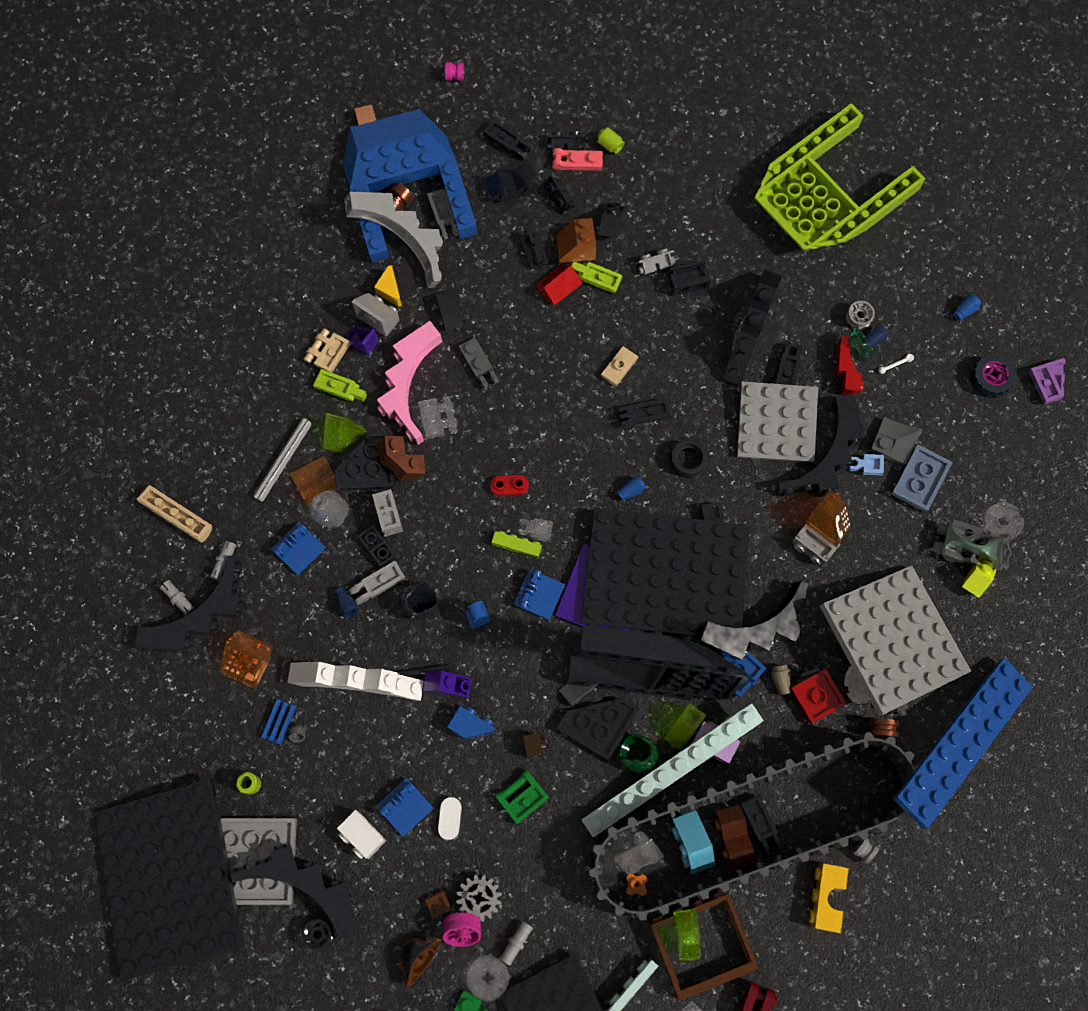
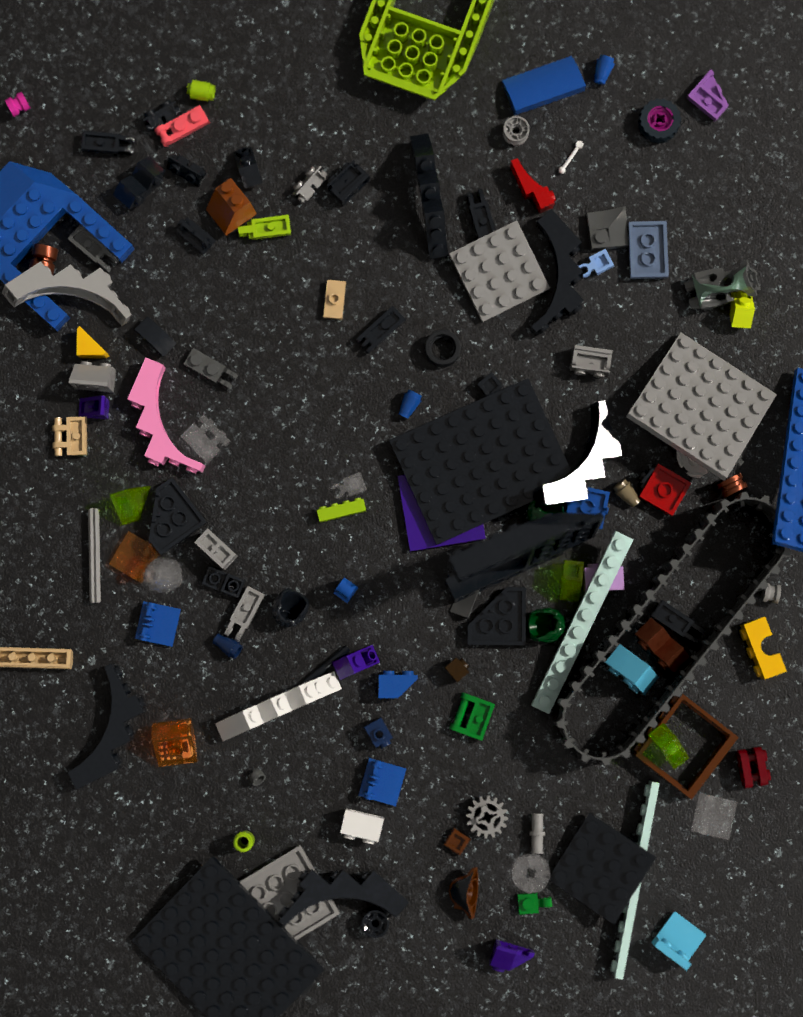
camera: 30 degrees left, 10 degrees up
(177, 598) = (83, 727): light grey pin -> none
(221, 560) = (100, 673): light grey pin -> none
(272, 717) = (227, 776): blue tile -> none
(339, 386) = (101, 462): lime hinge -> none
(393, 456) = (189, 496): copper brick -> none
(428, 760) = (379, 733): none -> dark blue brick
(449, 818) = (424, 768): white tile -> none
(461, 929) = (488, 849): dark pink wheel -> none
(509, 487) = (304, 463): red plate -> none
(539, 594) = (386, 541): blue hinge -> none
(559, 283) = (237, 254): red brick -> none
(631, 889) = (600, 730): orange plate -> none
(639, 856) = (598, 702): clear hinge -> none
(831, 518) = (592, 332): clear orange slope -> none
(859, 341) = (529, 158): clear green plate -> none
(877, 335) = (539, 144): dark blue cone -> none
(906, 293) = (543, 85): none -> blue slope
(1012, 516) = (726, 242): clear plate -> none

